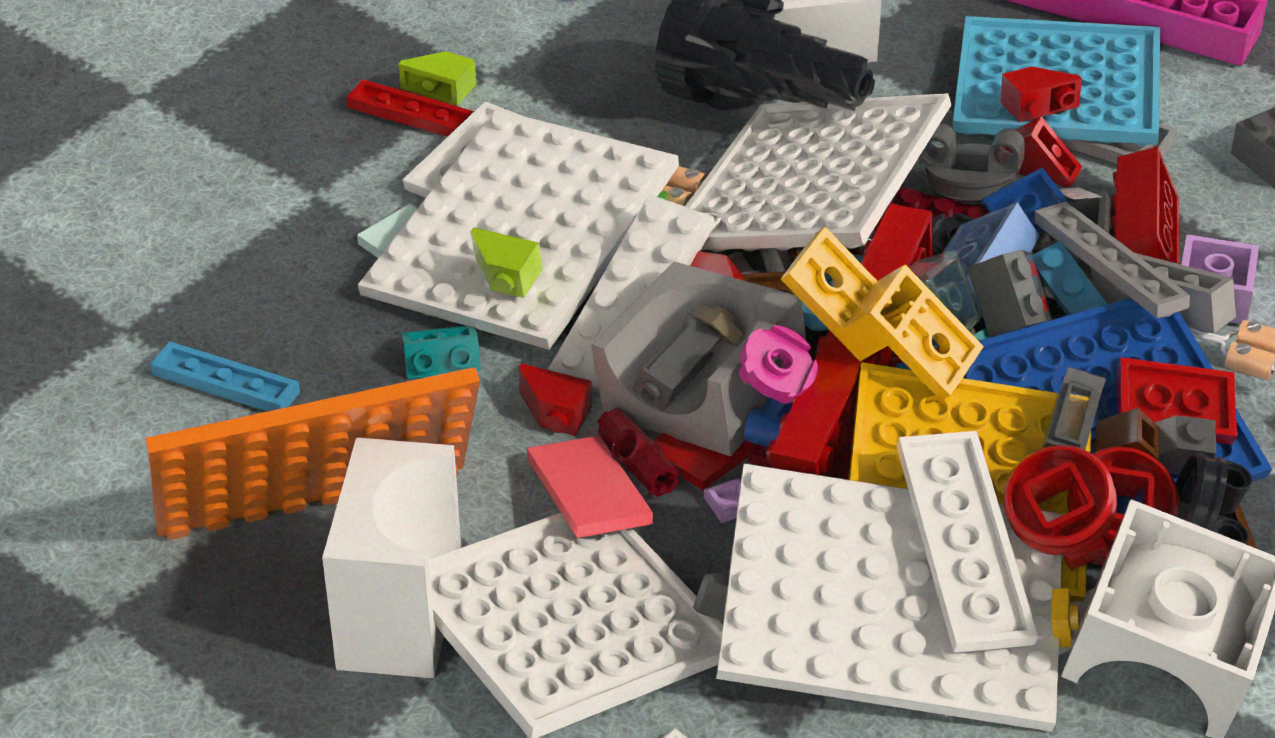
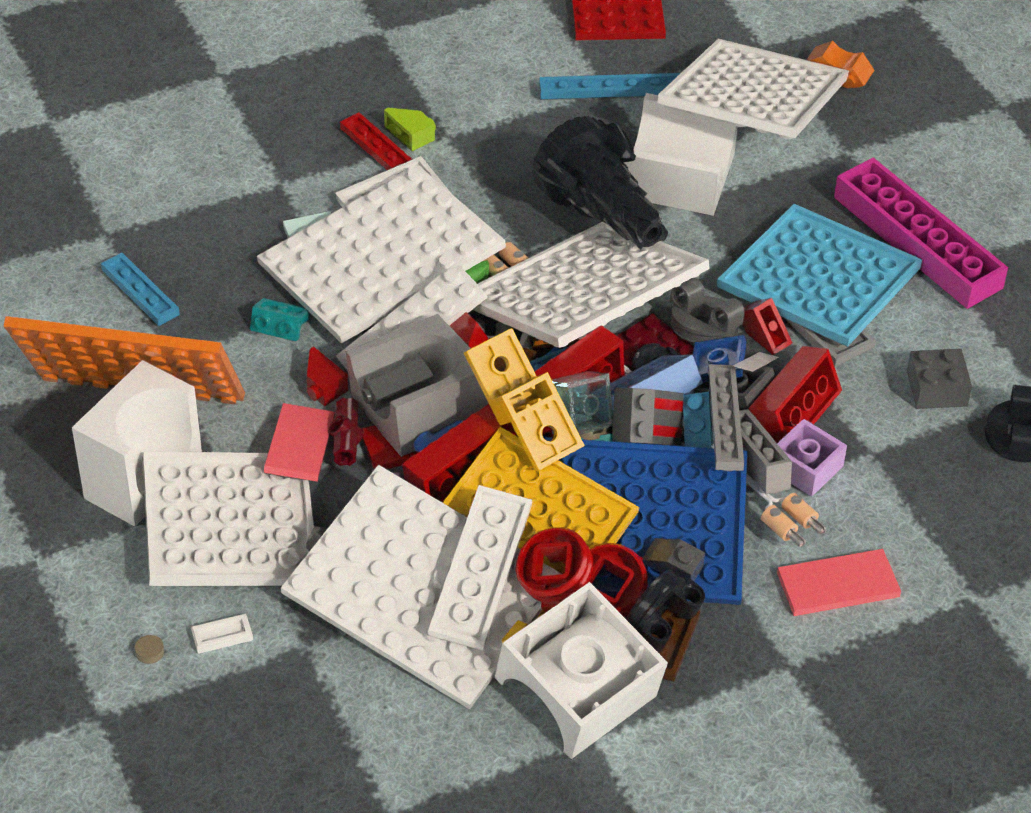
camera: 25 degrees right, 5 degrees up
(507, 261) = (343, 275): lime slope -> none
(720, 321) = (436, 365): dark tan plate -> none
(767, 378) = (438, 422): dark pink plate -> none
(1039, 92) = (785, 280): red slope -> none
(1074, 409) = (609, 515): dark grey window -> none
(1128, 430) = (644, 541): reddish brown brick -> none
(1180, 390) = (700, 526): red plate -> none

